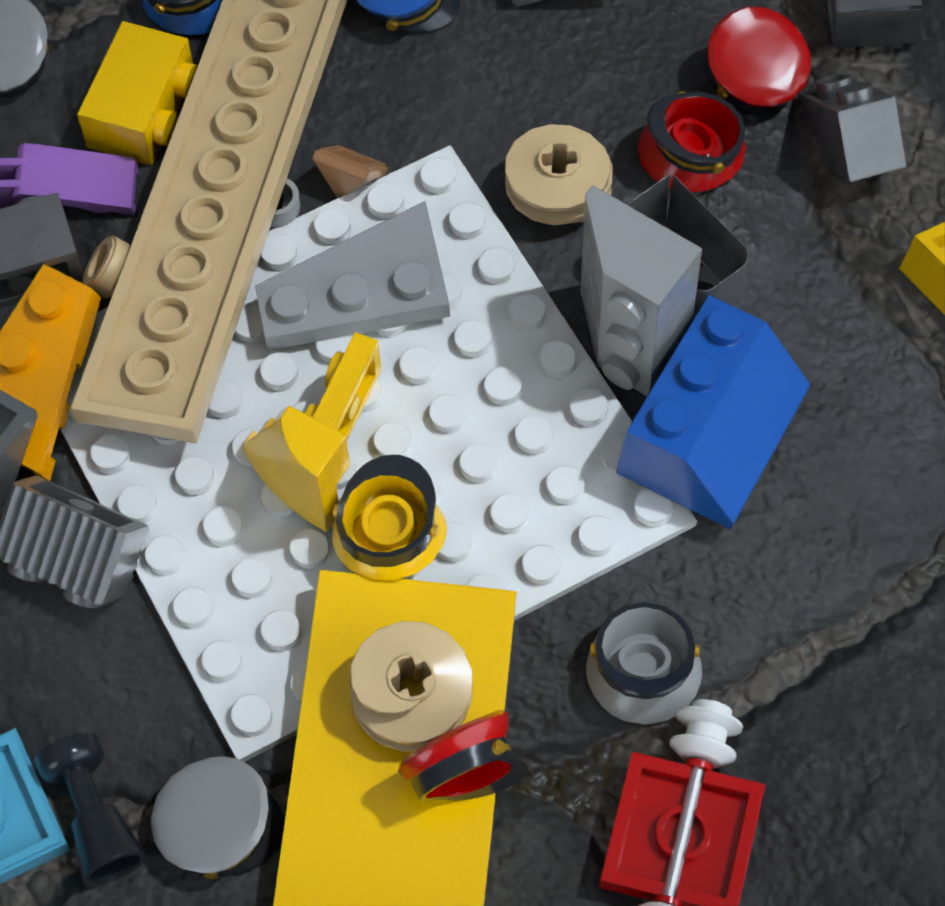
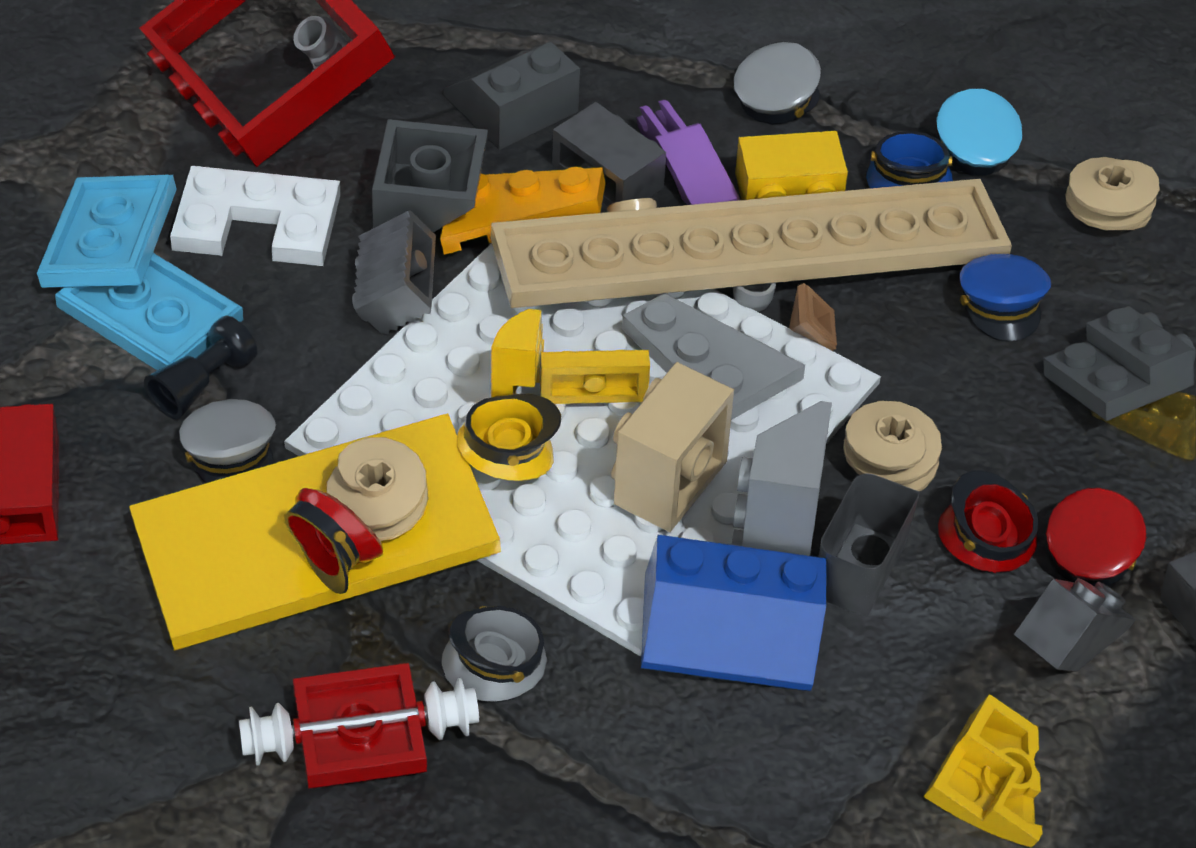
camera: 60 degrees right, 15 degrees down
(500, 367) = (672, 445): none -> tan brick

